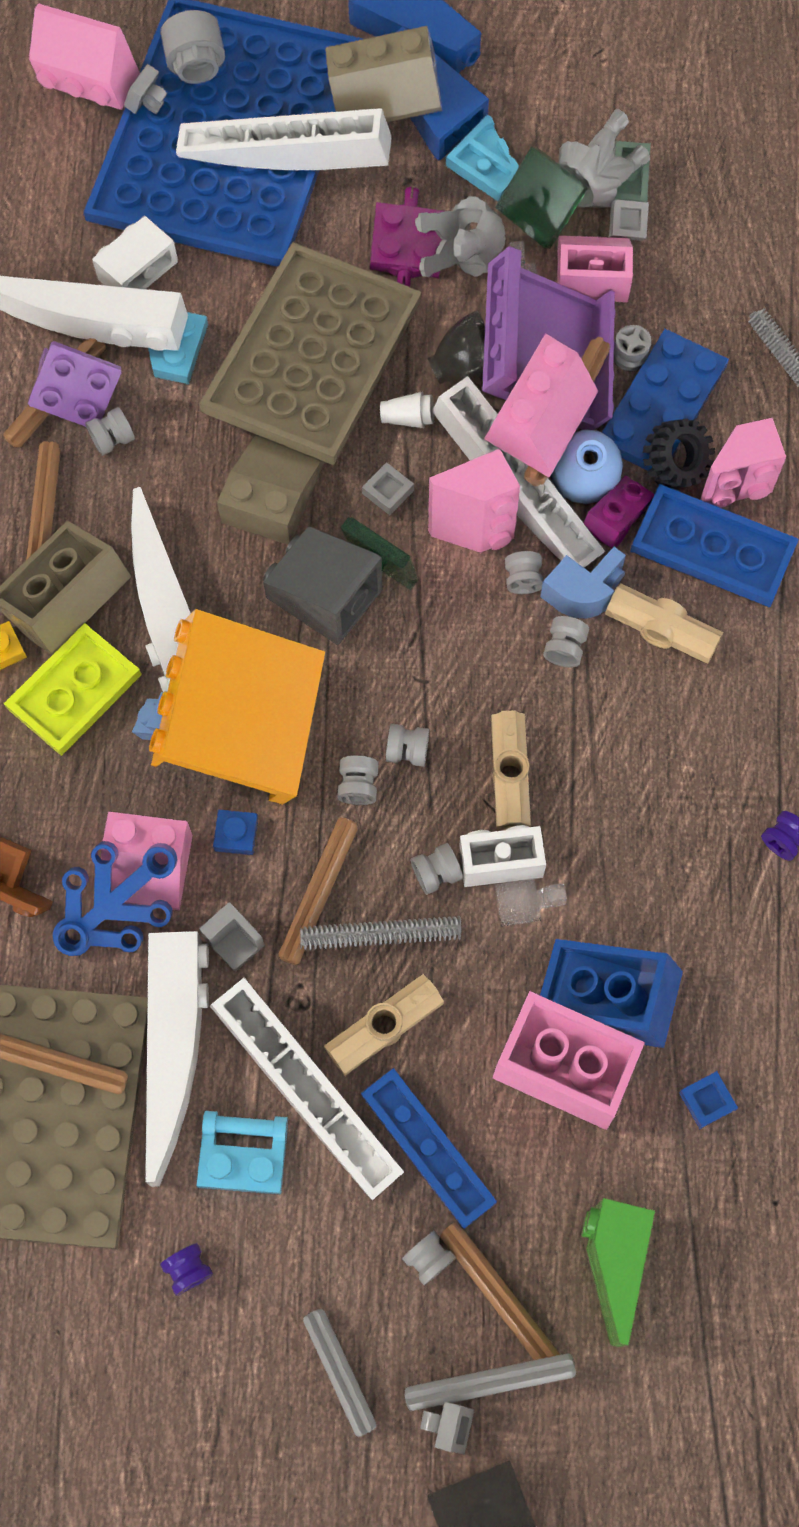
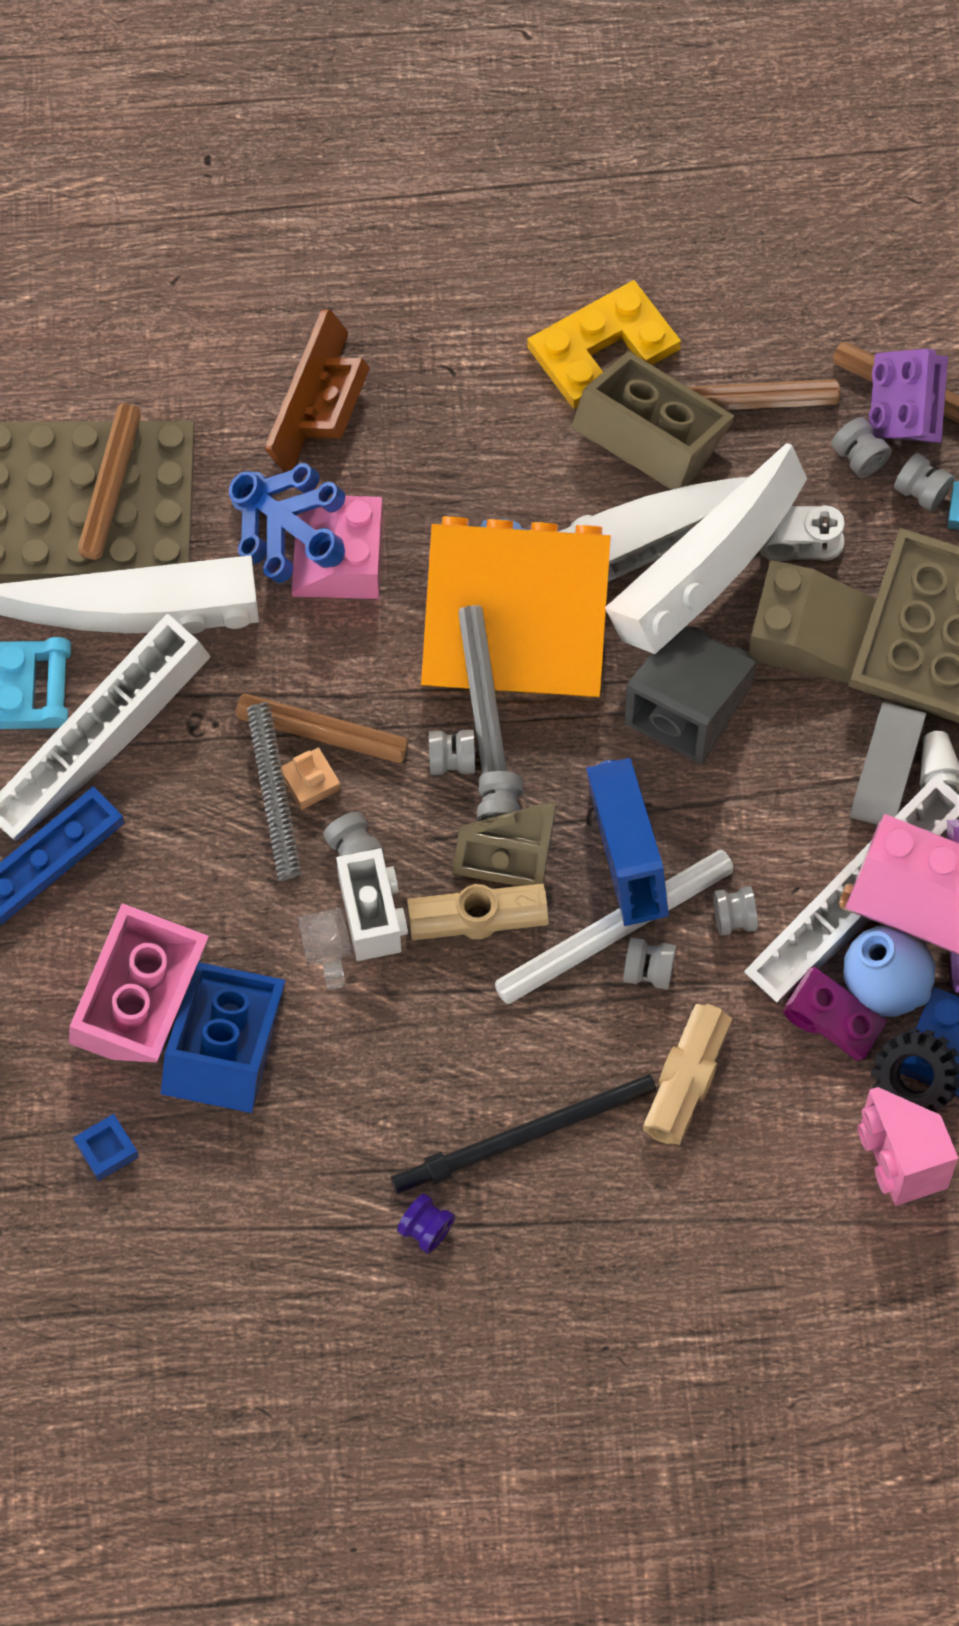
camera: 85 degrees right, 5 degrees down
(73, 689) = (534, 454): neon yellow plate -> none
(150, 389) = (924, 482): none -> light grey wheel
(183, 485) = (801, 537): none -> white piece
(219, 549) = (707, 556): none -> white slope
(232, 937) = (263, 645): light grey panel -> none
(235, 832) = (383, 638): blue plate -> none
(311, 742) = (482, 688): none -> light grey axle
(363, 1041) = (188, 821): tan piece -> none
(366, 903) = (310, 778): none -> light nougat tile
(388, 488) = (829, 752): light grey plate -> none
(394, 561) = (729, 741): clear green plate -> none
(403, 445) = (887, 763): none -> light grey beam
(454, 740) = (507, 846): none -> dark tan wing
(461, 640) = (628, 841): none -> blue slope
(475, 503) = (804, 835): bright pink slope -> none
(528, 669) = (607, 931): none -> white axle
(582, 593) = (719, 975): medium blue brick -> none
(714, 545) = (802, 1130): blue plate -> none
(733, 822) = (440, 1166): none -> black bar

